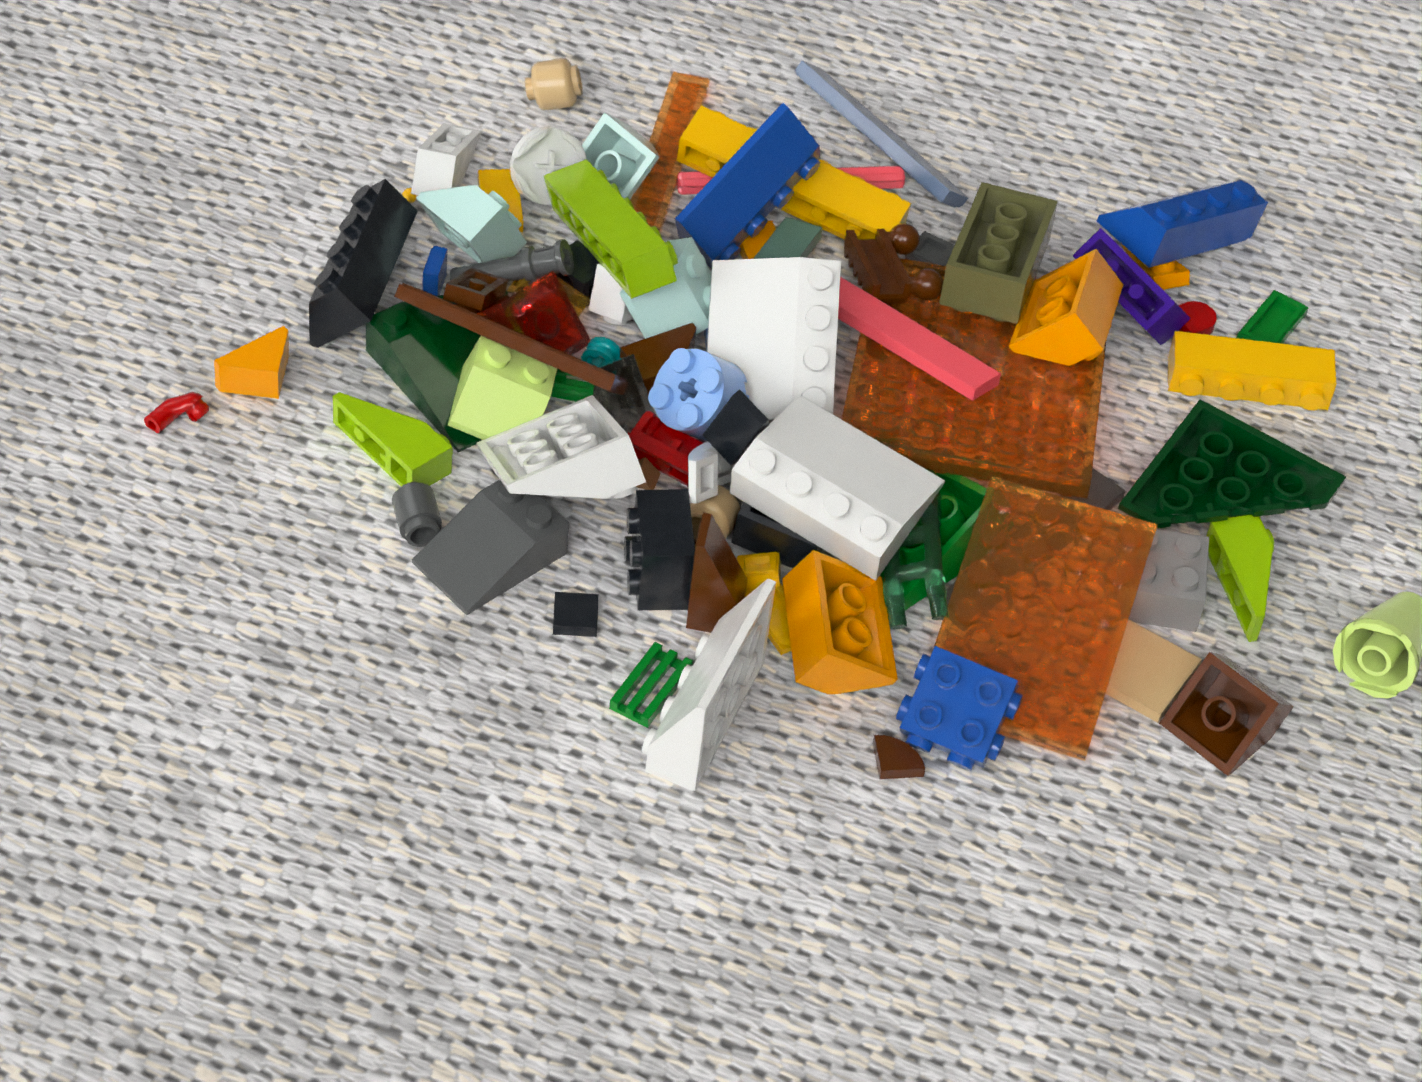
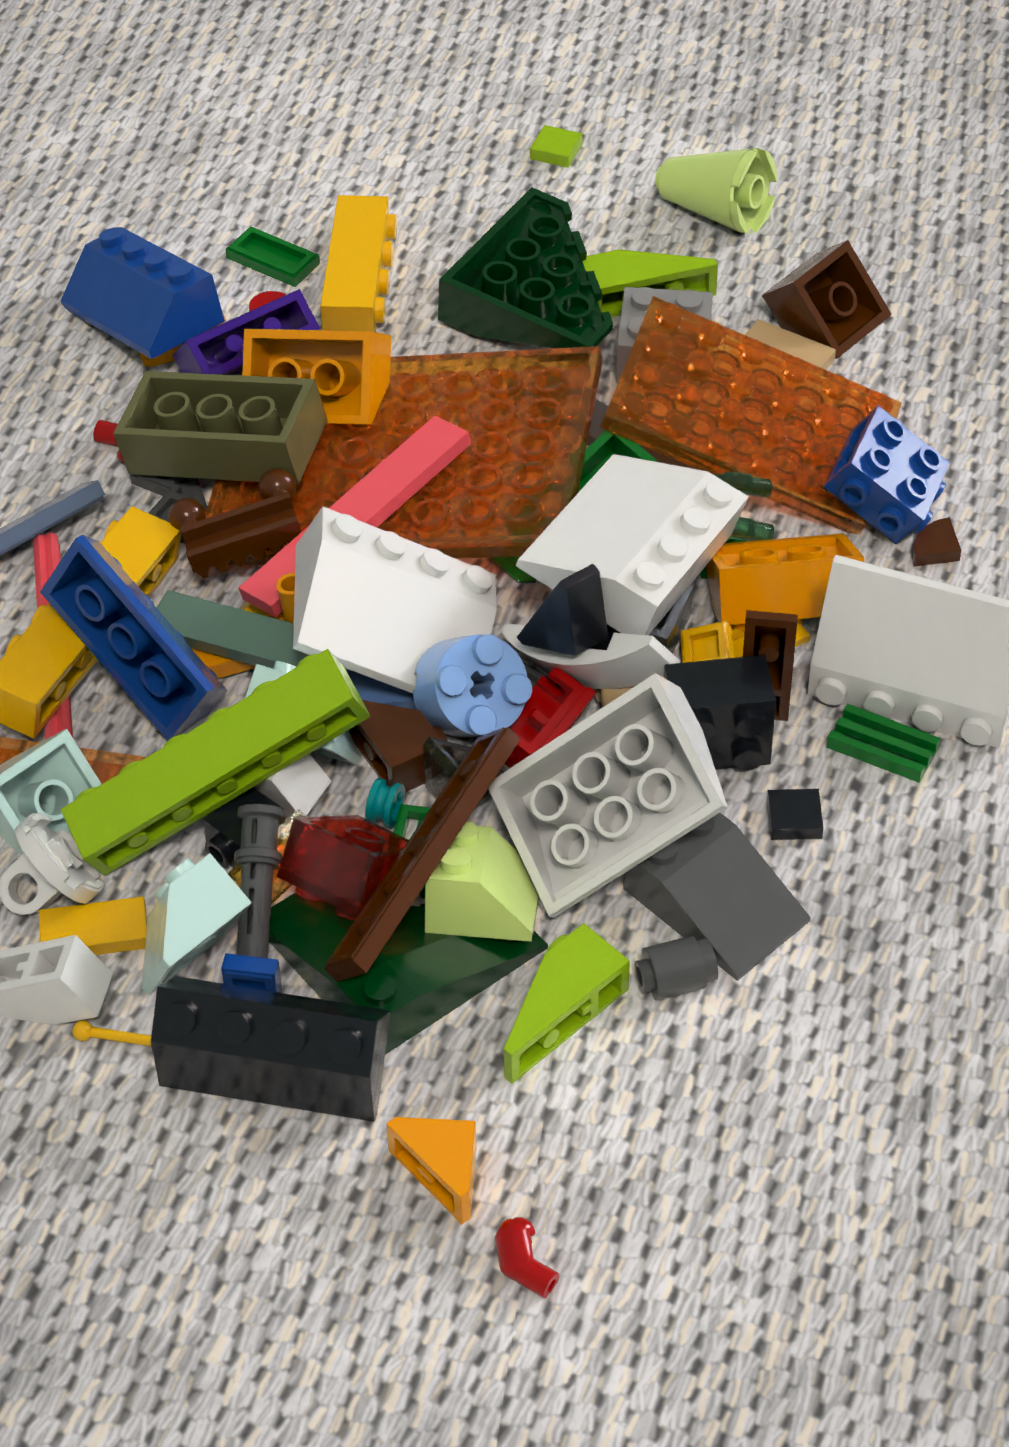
camera: 85 degrees left, 0 degrees up
(475, 289) = (313, 908): reddish brown plate -> none

